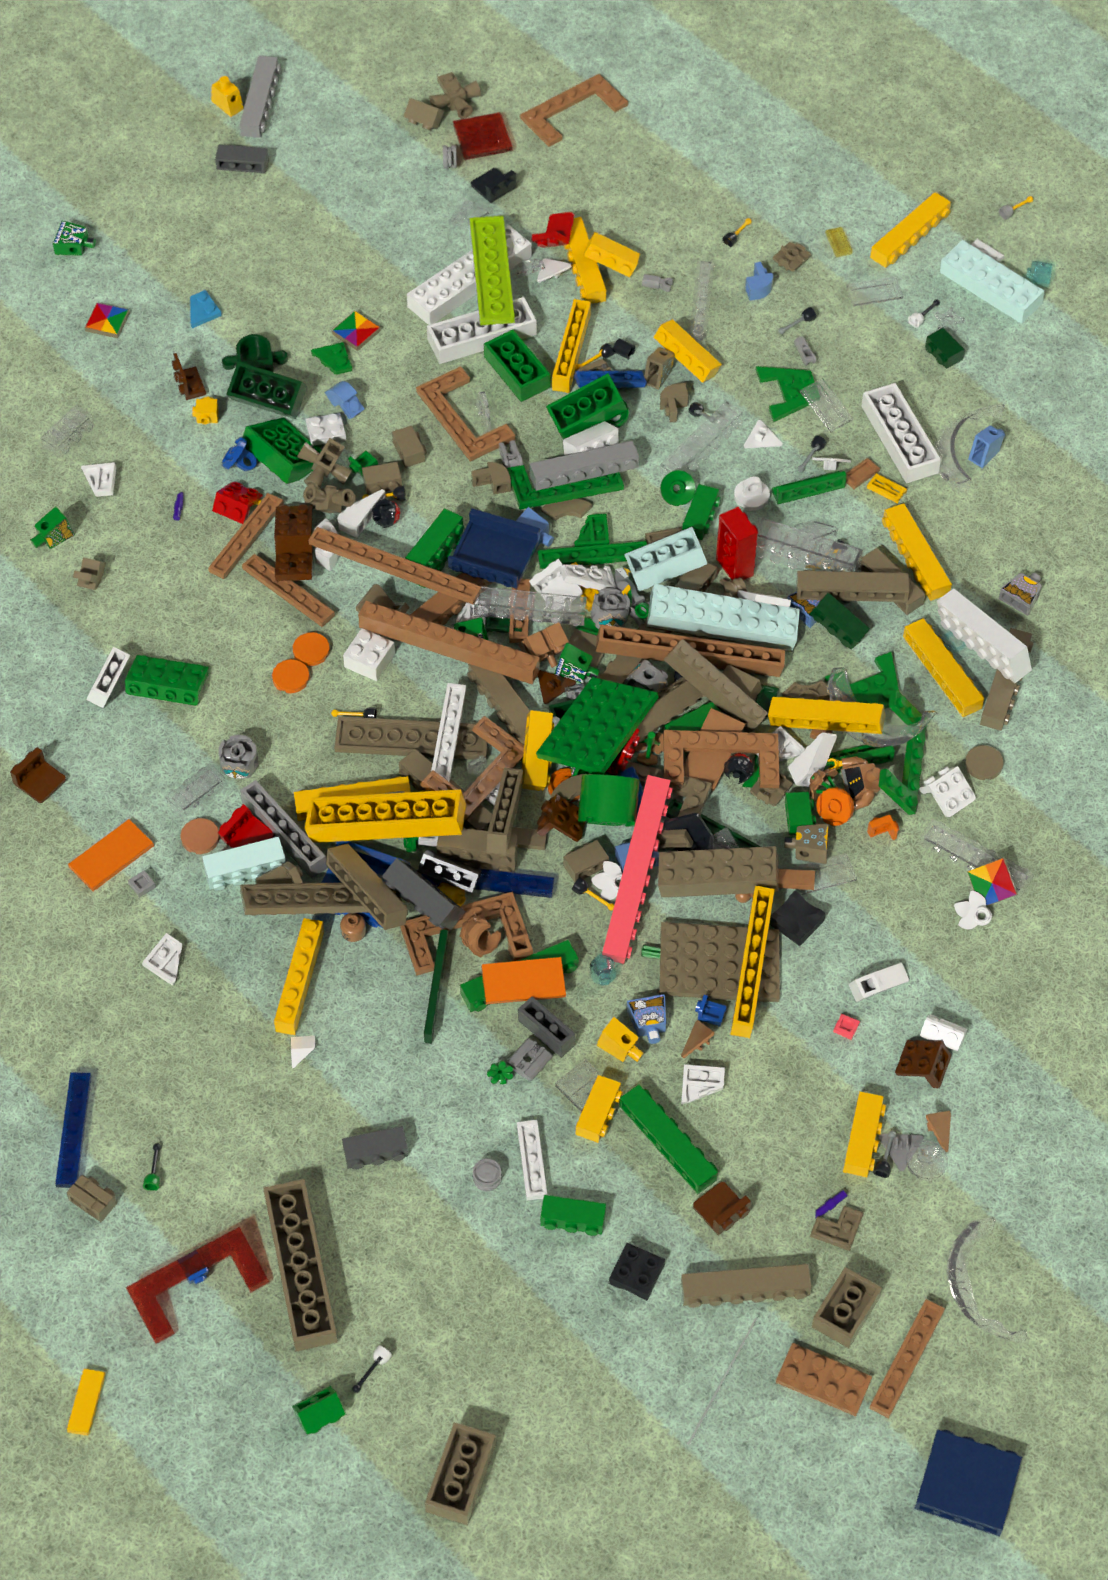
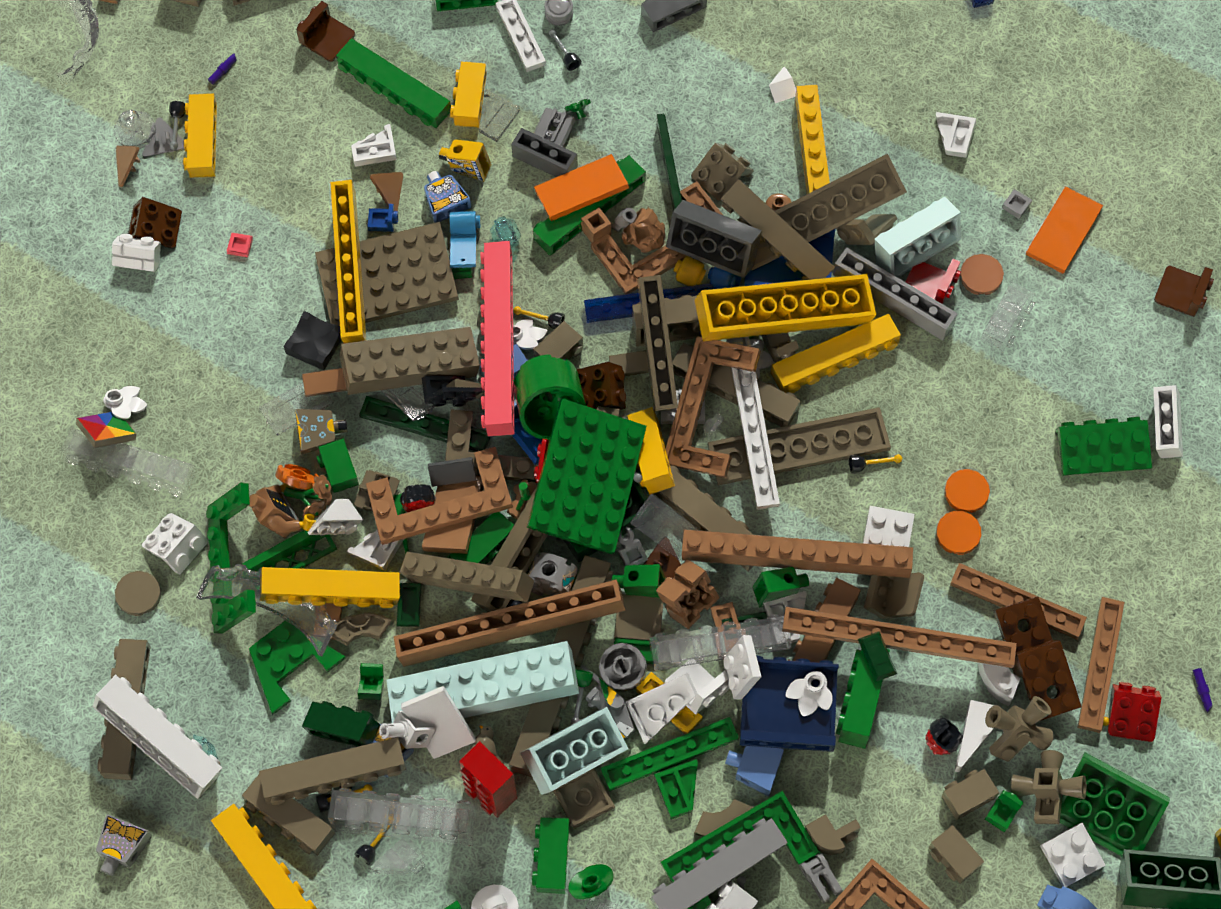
camera: 165 degrees right, 10 degrees up
(236, 455) = (1165, 772): blue tile -> none
(238, 757) = (979, 364): light grey brick -> none
(387, 976) = (720, 170): none -> dark tan bracket
(398, 493) = (941, 779): black hinge -> none
(417, 552) = (877, 656): none -> dark green tile
(449, 871) = (694, 277): black brick -> none
(475, 550) = (810, 697): none -> white plate
(491, 1121) = (570, 60): none -> black hinge
(493, 947) = (624, 219): none -> light grey bar
(521, 569) = (742, 667): none -> white plate
(544, 694) = (662, 525): none -> clear piece
(642, 972) = (463, 238): none -> dark azure door
(705, 777) = (451, 472): none -> dark grey tile
(744, 681) = (441, 606): dark tan brick -> none
(792, 593) = (406, 732): none -> white bracket
(809, 651) = (371, 681): none -> green bracket
(840, 1233) = (207, 44): dark tan tile -> none
(878, 982) = (216, 287): white slope -> none
(882, 825) = (244, 474): orange bracket -> none
(943, 667) = (204, 705): yellow brick -> none

